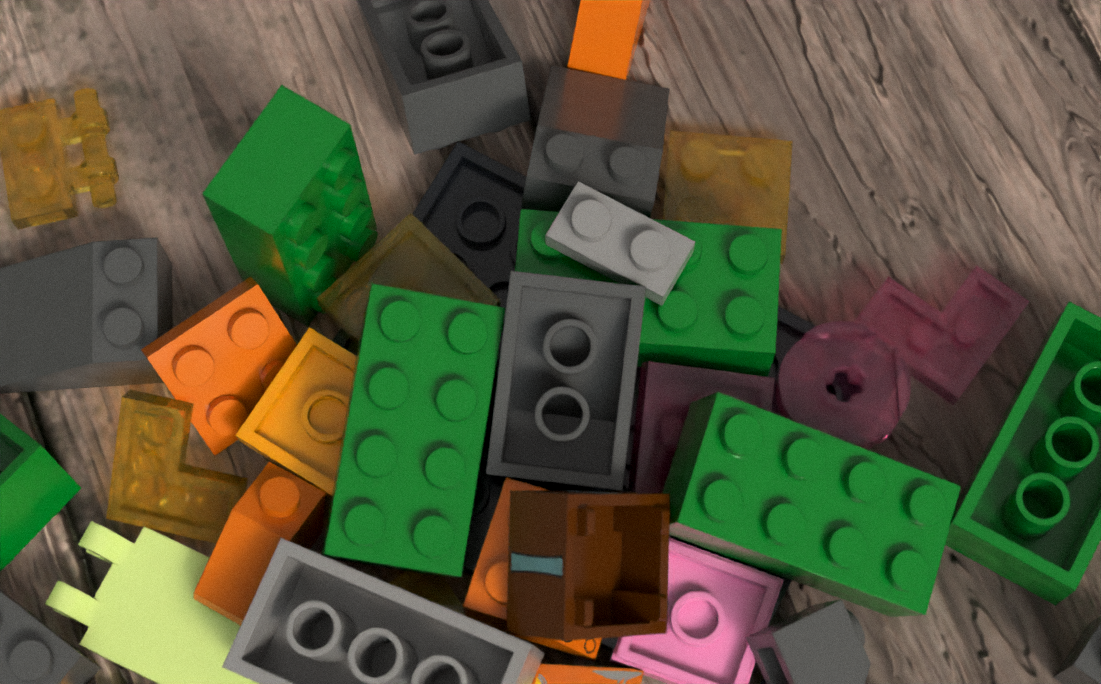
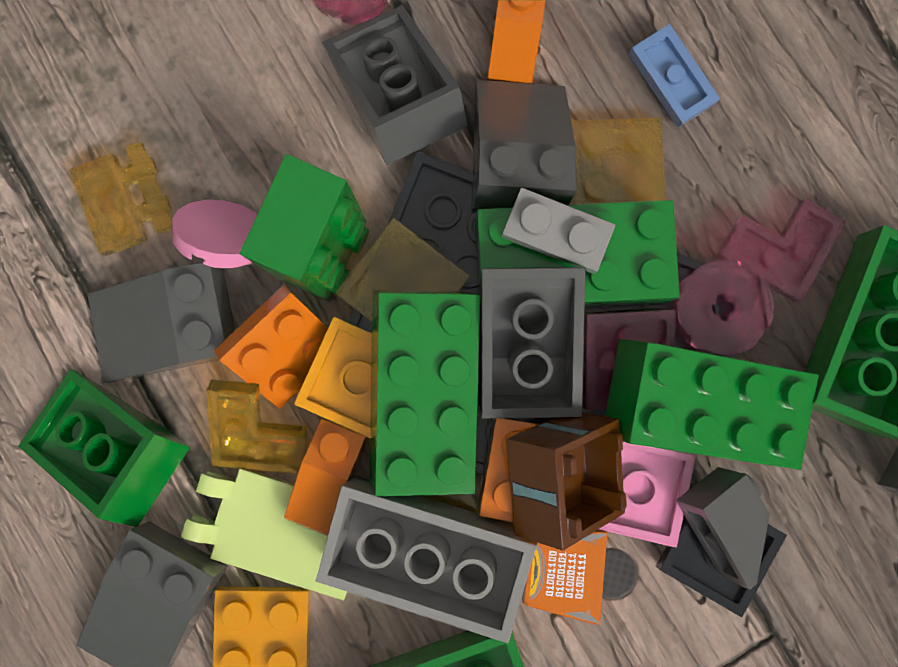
camera: 10 degrees left, 15 degrees up
(170, 207) = (213, 232): none -> bright pink tile
(815, 92) = (673, 75): none -> medium blue plate

